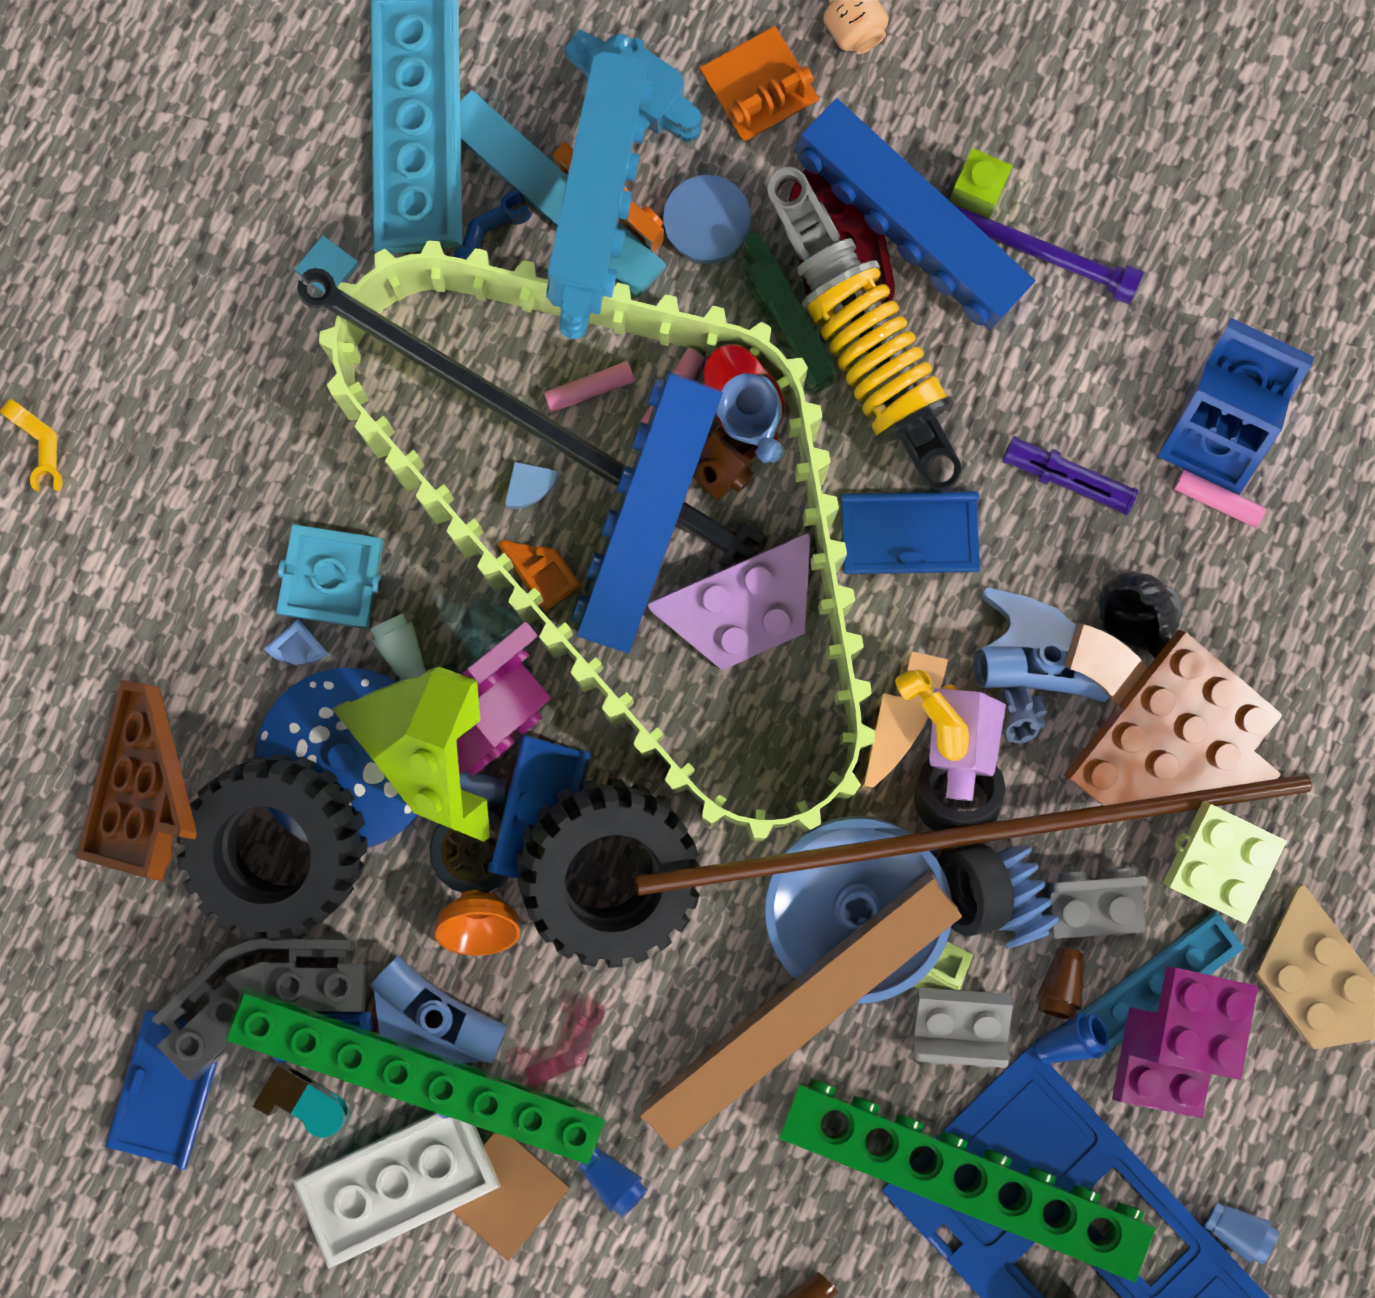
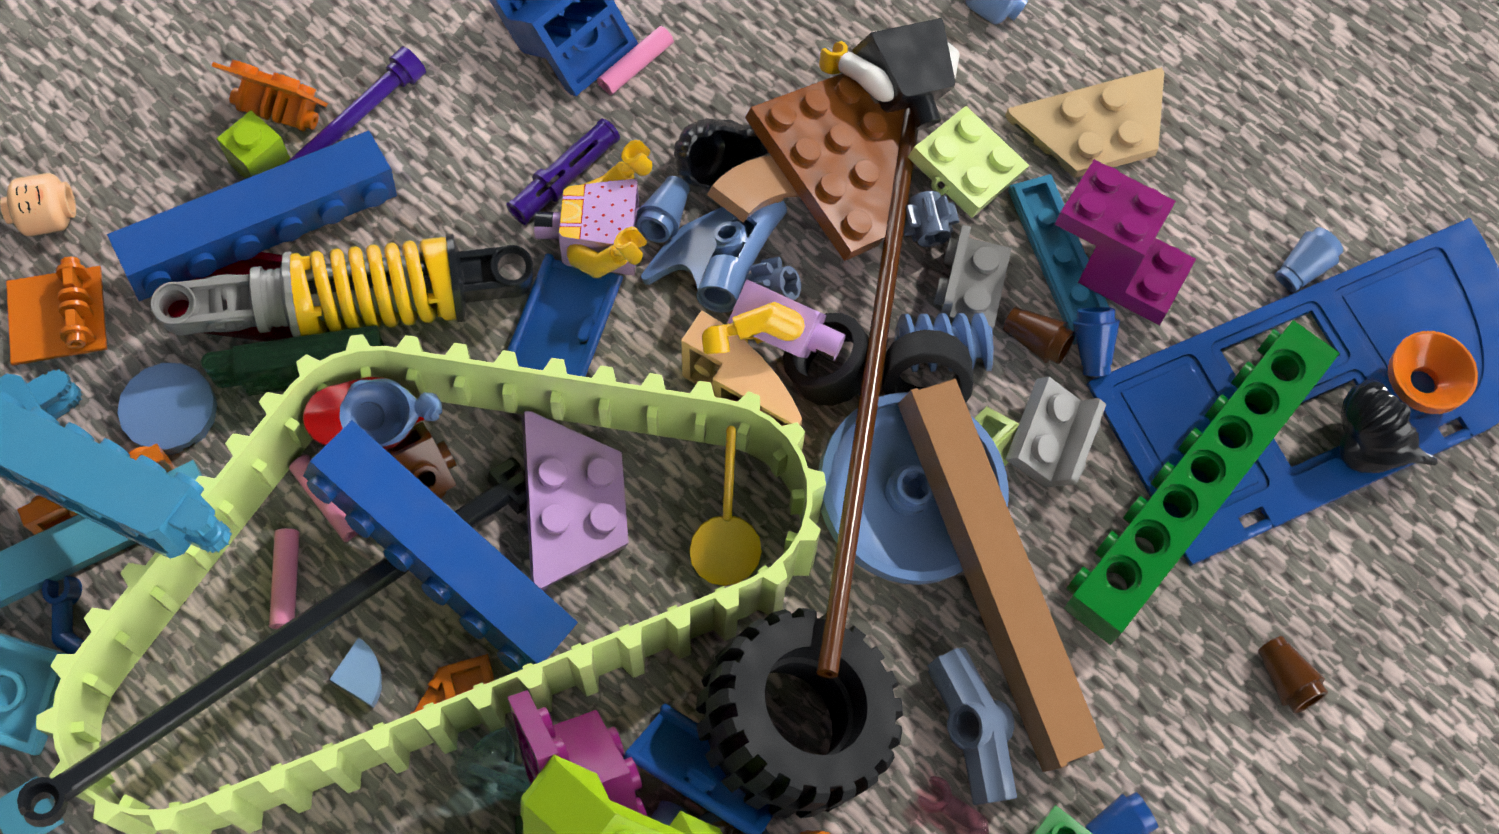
camera: 75 degrees left, 15 degrees down
(657, 1032) = (976, 726): none -> sand blue piece
(747, 758) = (726, 545): none -> yellow piece
(1025, 530) = (600, 218): none -> torso
(1043, 161) = (273, 94): none -> orange hinge
(1063, 585) = (663, 210): none -> medium blue cone
(1145, 843) = (930, 218): none -> sand blue gear
(1297, 765) = (900, 68): none -> black torso

